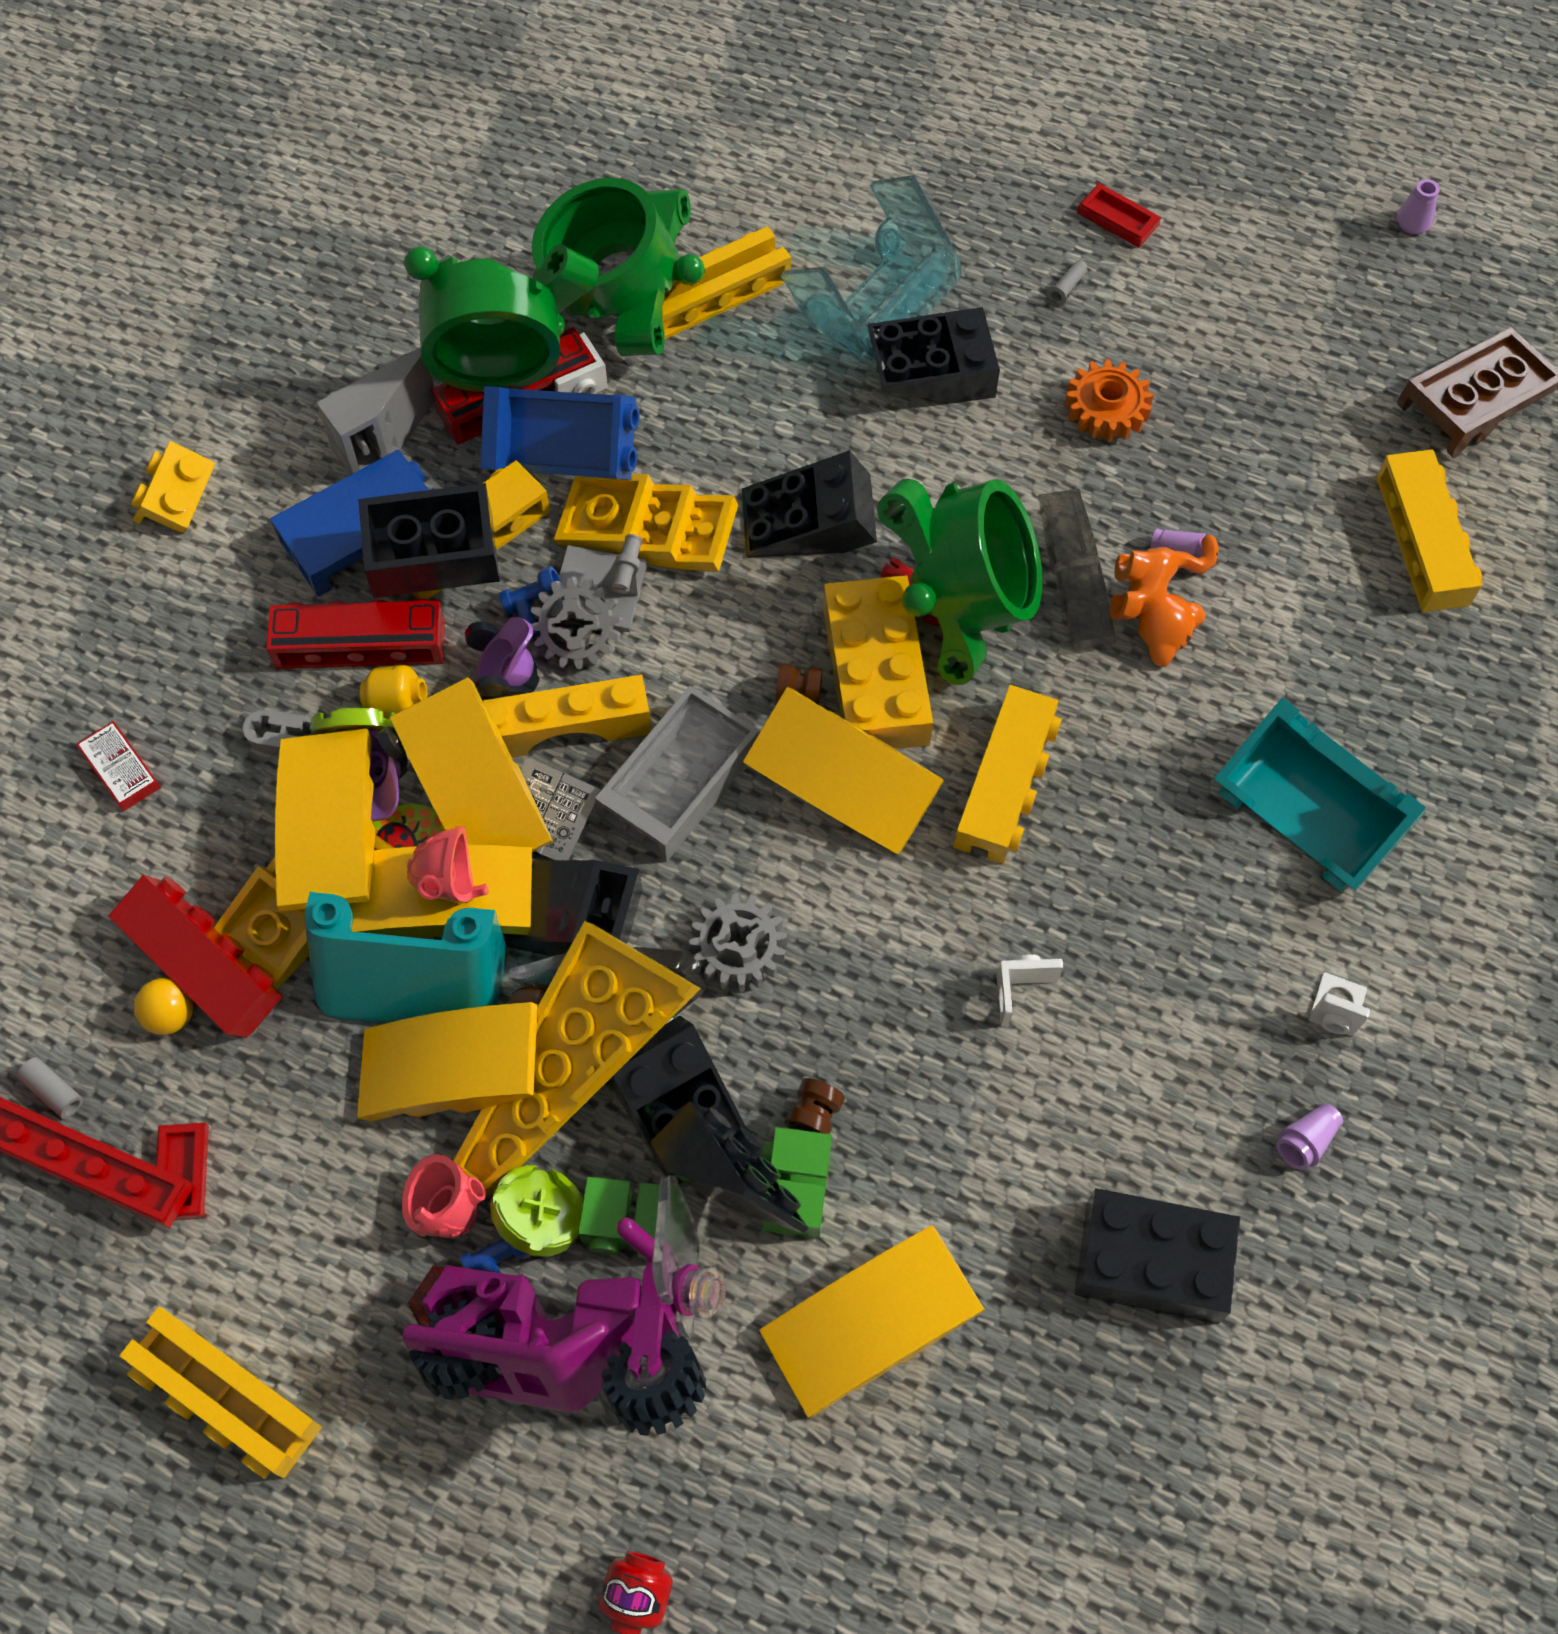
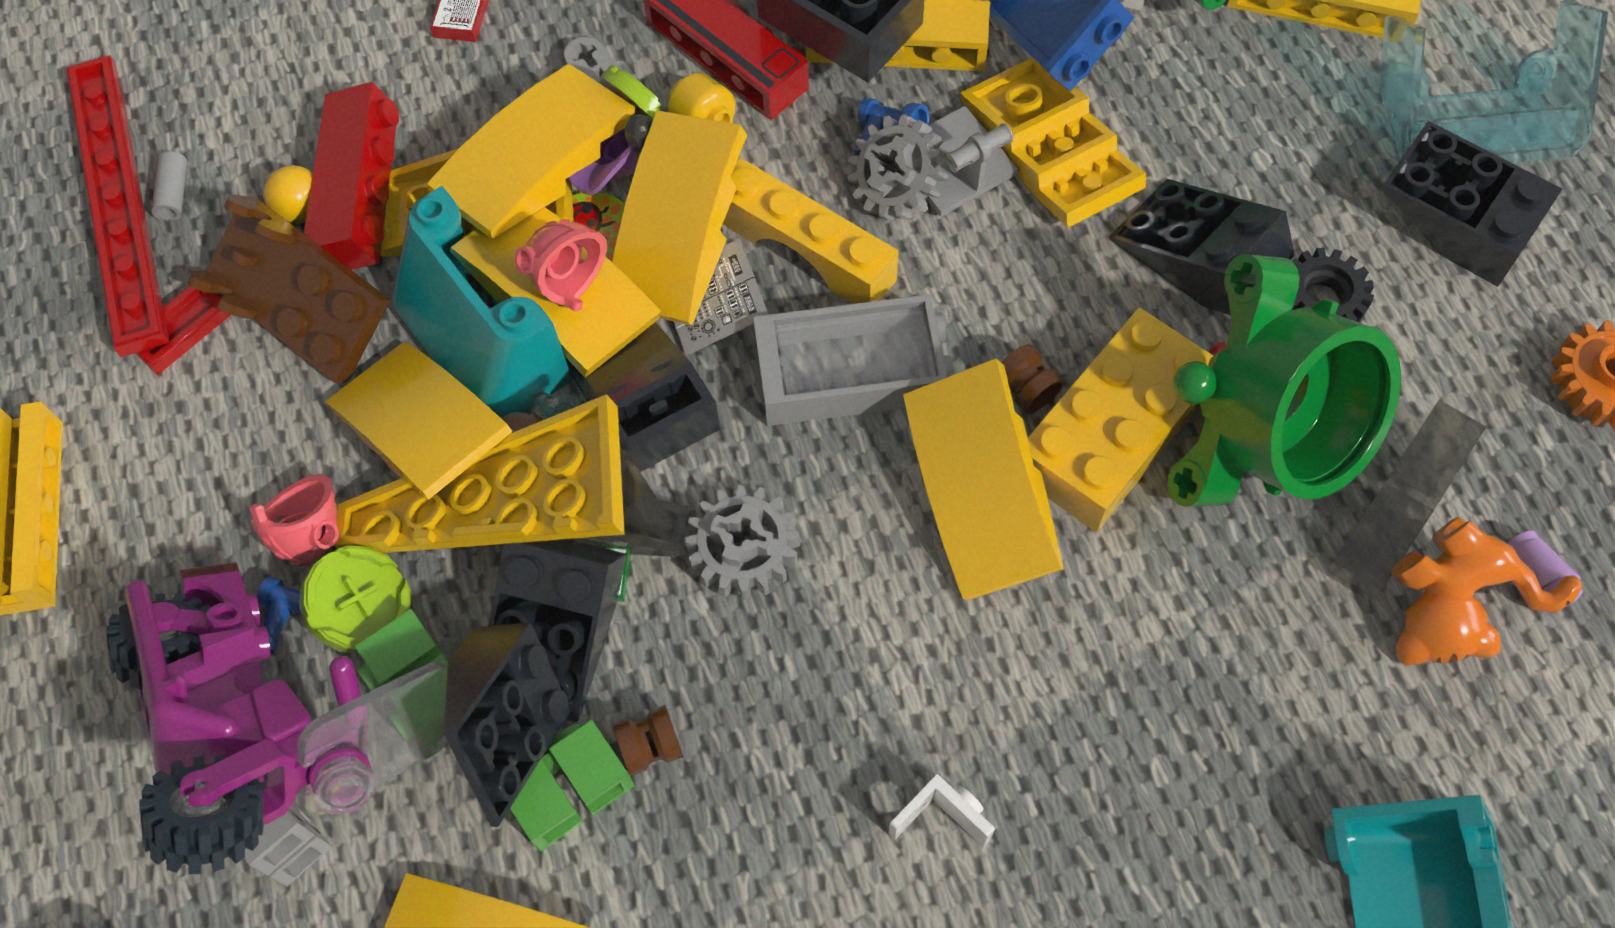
camera: 50 degrees right, 0 degrees up
(247, 1066) = (292, 289): none -> reddish brown hinge
(505, 663) = (811, 159): medium lavender cap -> none
(914, 466) = (1337, 275): none -> black tyre
(1007, 773) = (1134, 619): yellow brick -> none

